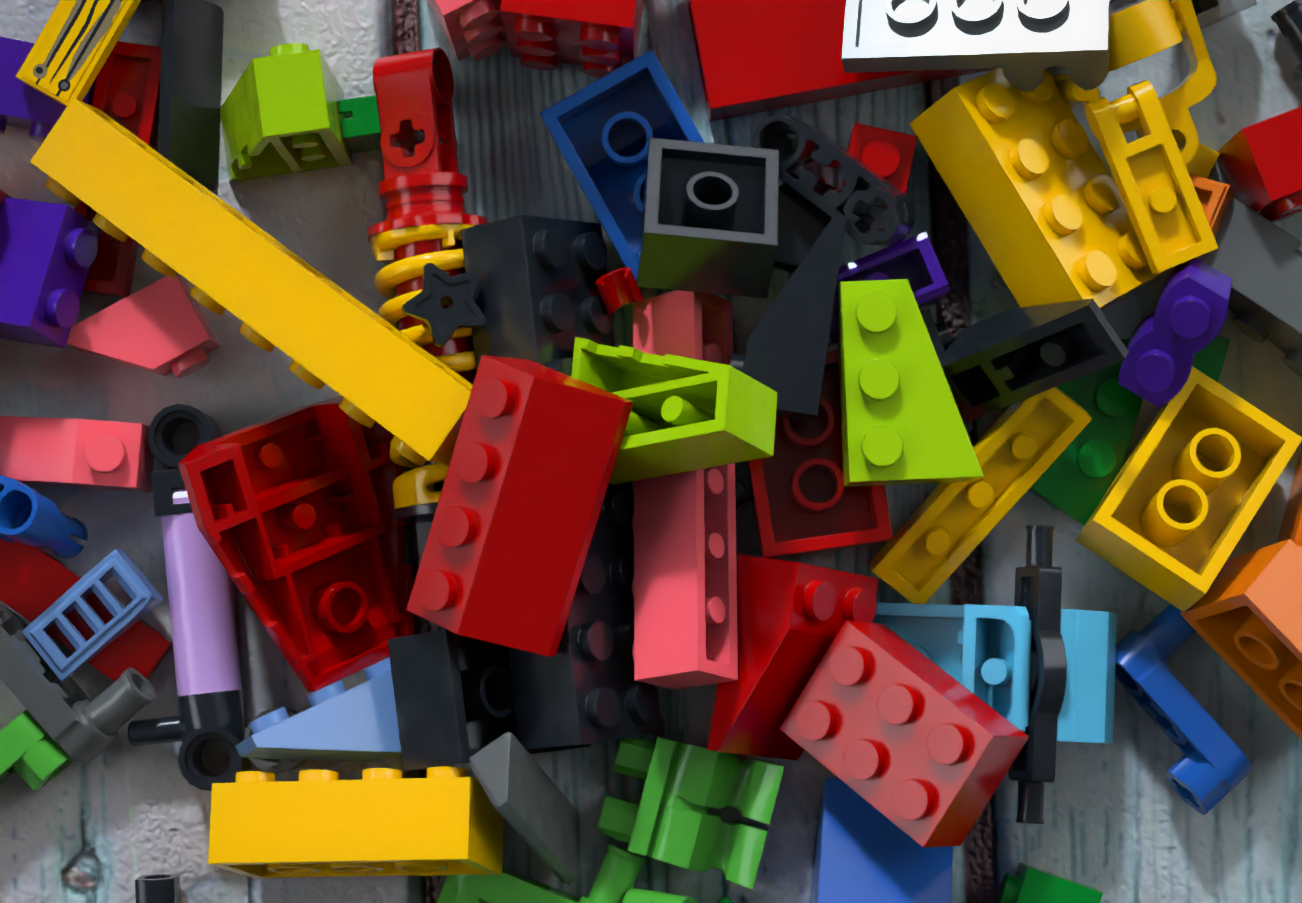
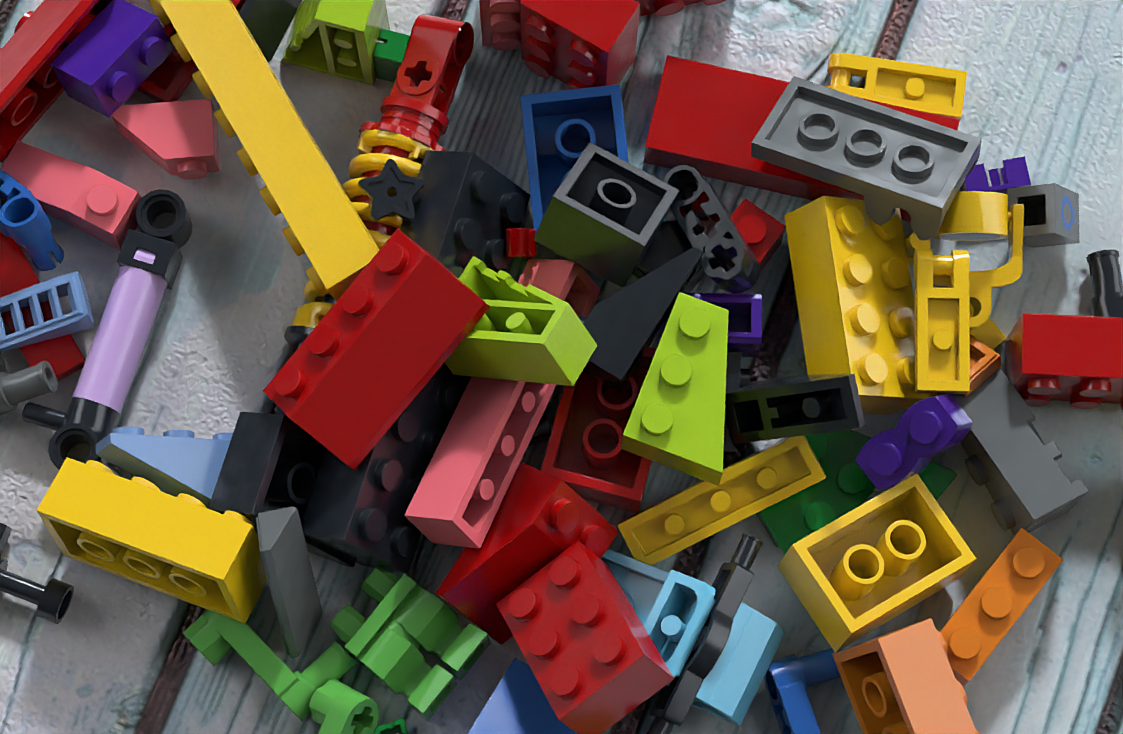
camera: 20 degrees right, 10 degrees down
(309, 535) = (218, 319): red wedge -> none

